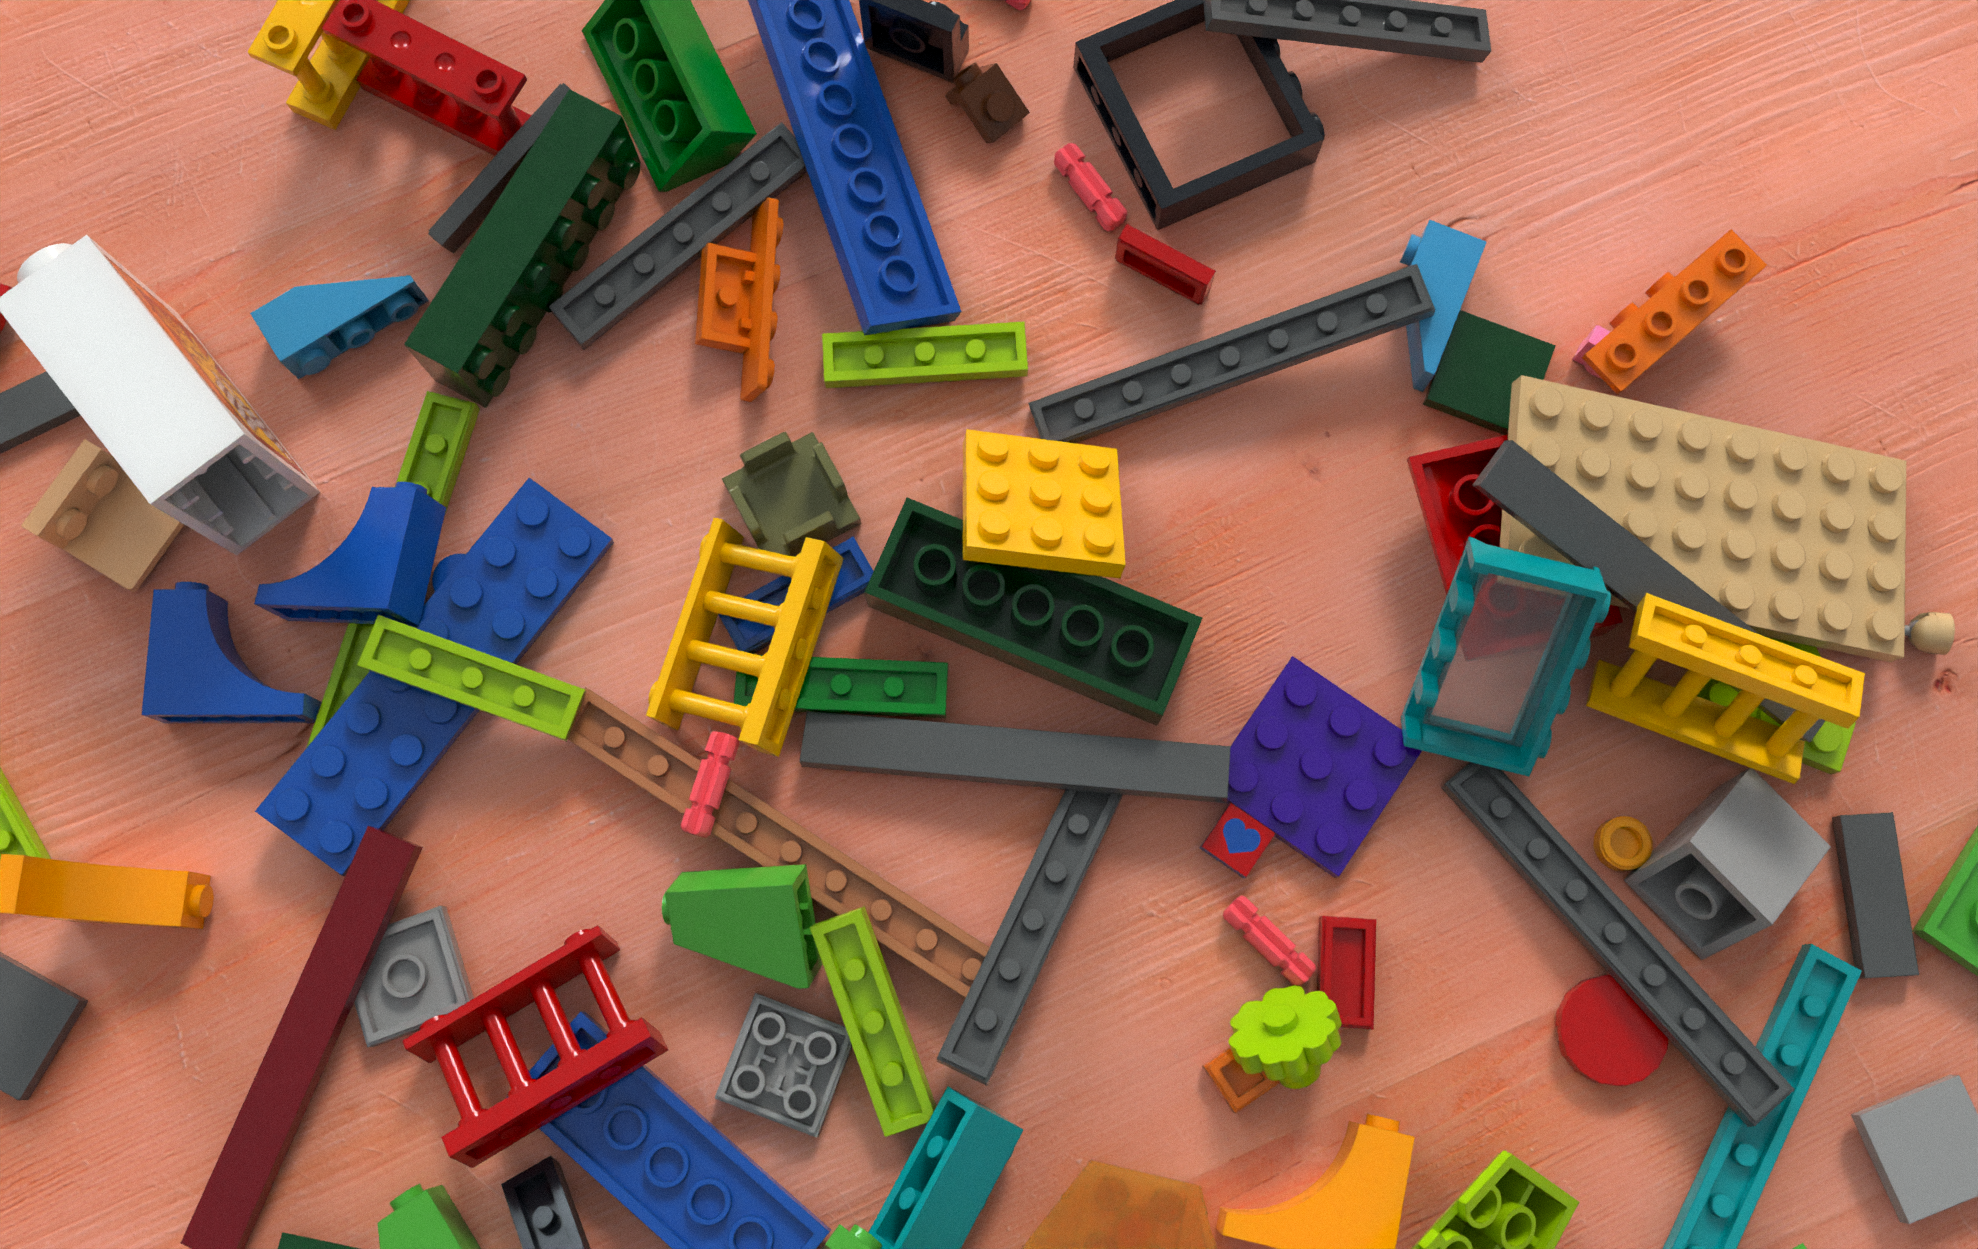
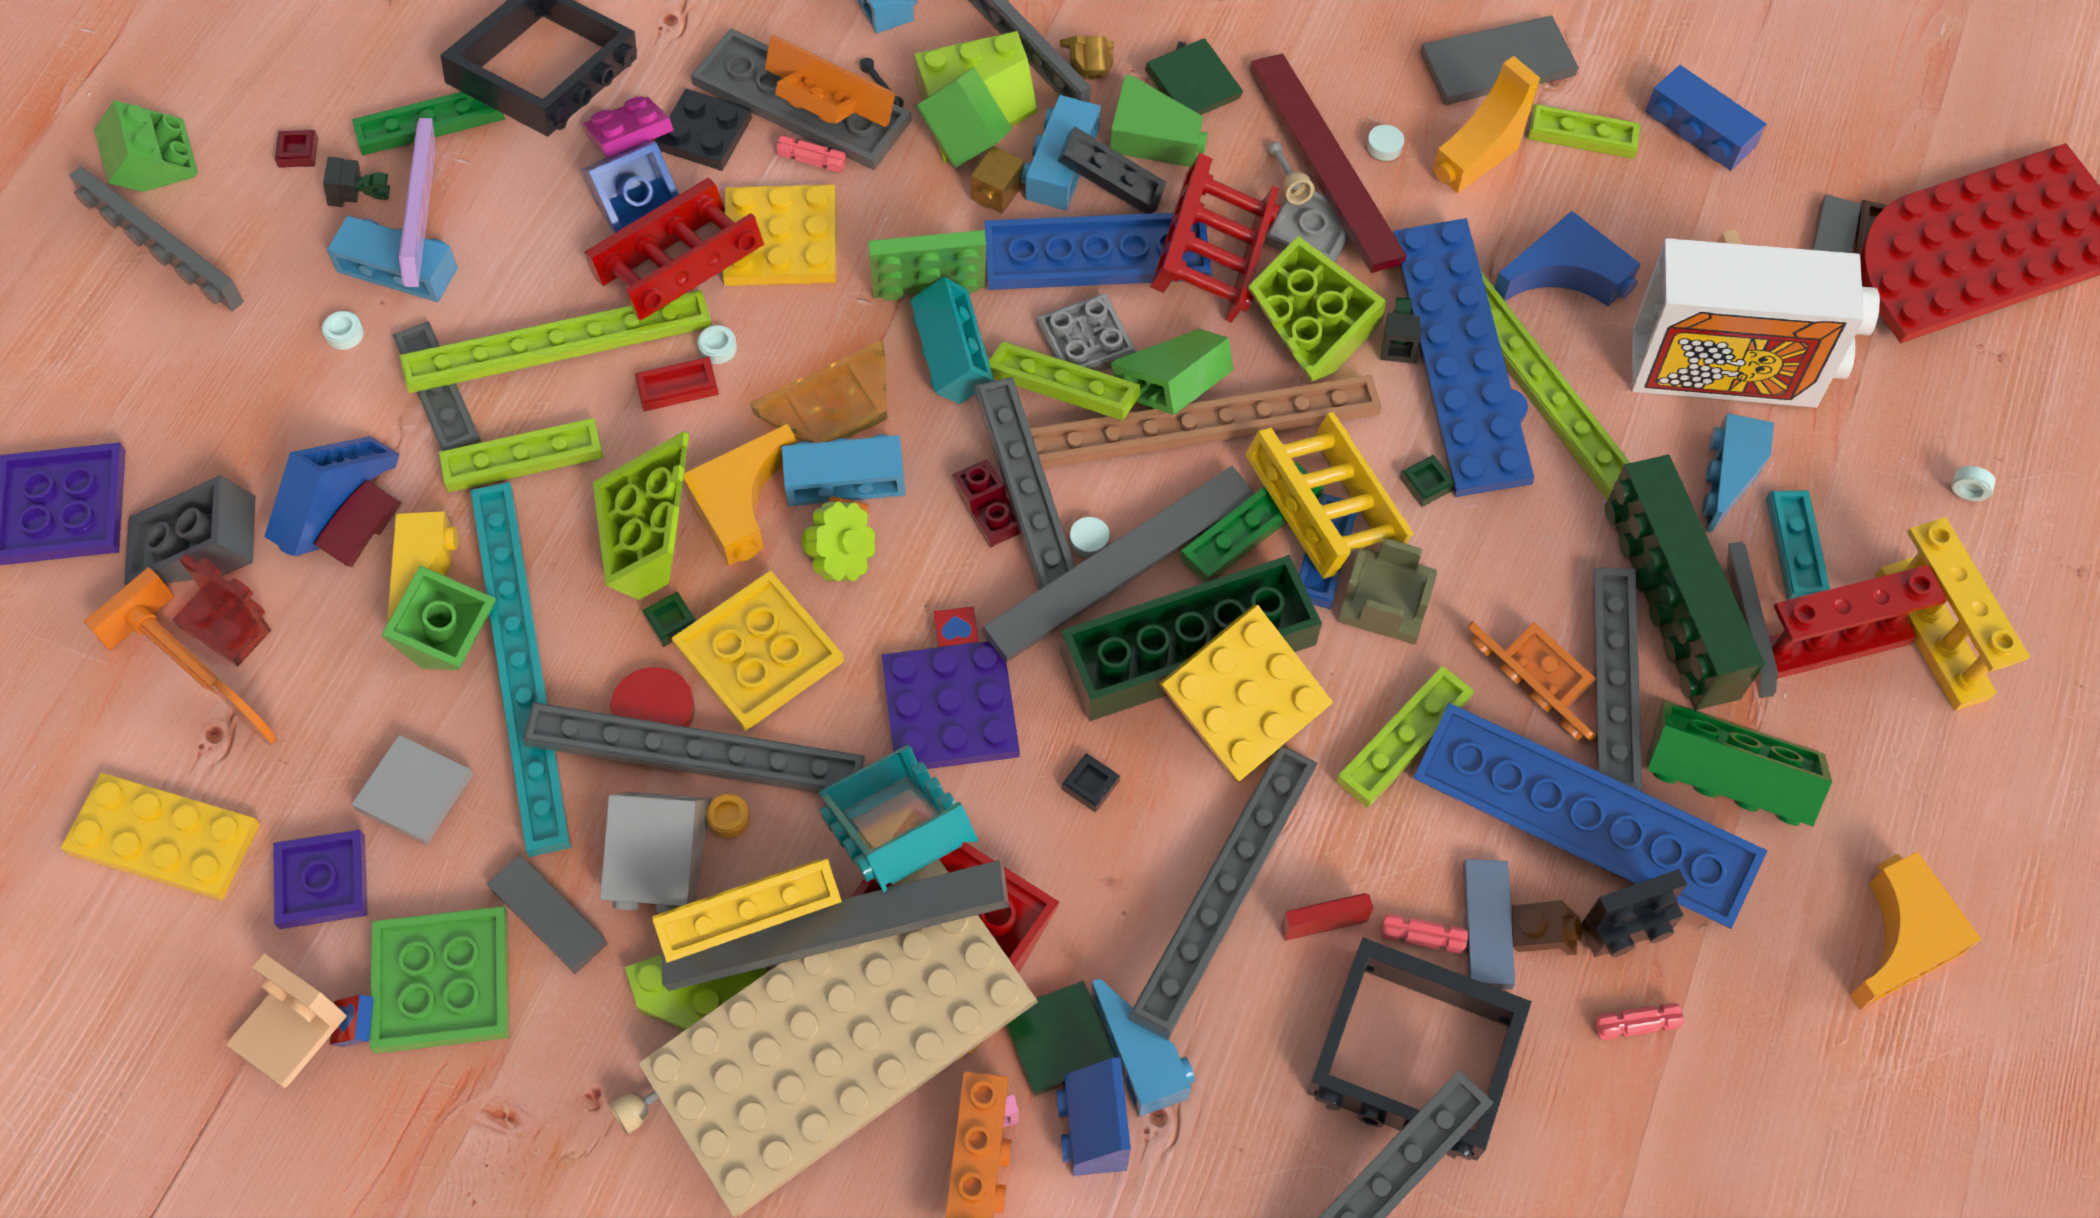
camera: 135 degrees right, 15 degrees down
(148, 112) = (1973, 483): none -> light aqua tile
(210, 1009) = (1385, 142): none -> light aqua tile
(368, 210) = (1797, 543): none -> teal tile
(374, 571) = (1549, 364): blue arch -> none
(376, 1031) = (1296, 185): none -> tan hinge
(471, 678) = (1437, 351): lime plate -> none
(471, 750) = (1401, 334): none -> pearl dark grey piece
(532, 854) = (1317, 307): none -> lime wedge
(623, 579) = (1427, 480): none -> dark green tile
(710, 784) = (1263, 408): coral axle -> none
(1012, 821) = (1089, 536): none -> light aqua tile
(1026, 149) = (1489, 922): none -> sand blue tile
(1079, 956) = (987, 502): none -> dark red slope
(1199, 1131) = (843, 470): none -> dark azure brick
(1249, 572) = (1090, 782): none -> black tile
(1269, 941) = (890, 593): coral axle -> none
(1348, 968) = (833, 614): red tile -> none
(1459, 995) = (758, 650): none -> yellow plate
(1517, 1119) = (668, 617): none -> dark green tile
(1531, 267) = (1095, 1119): none -> blue slope

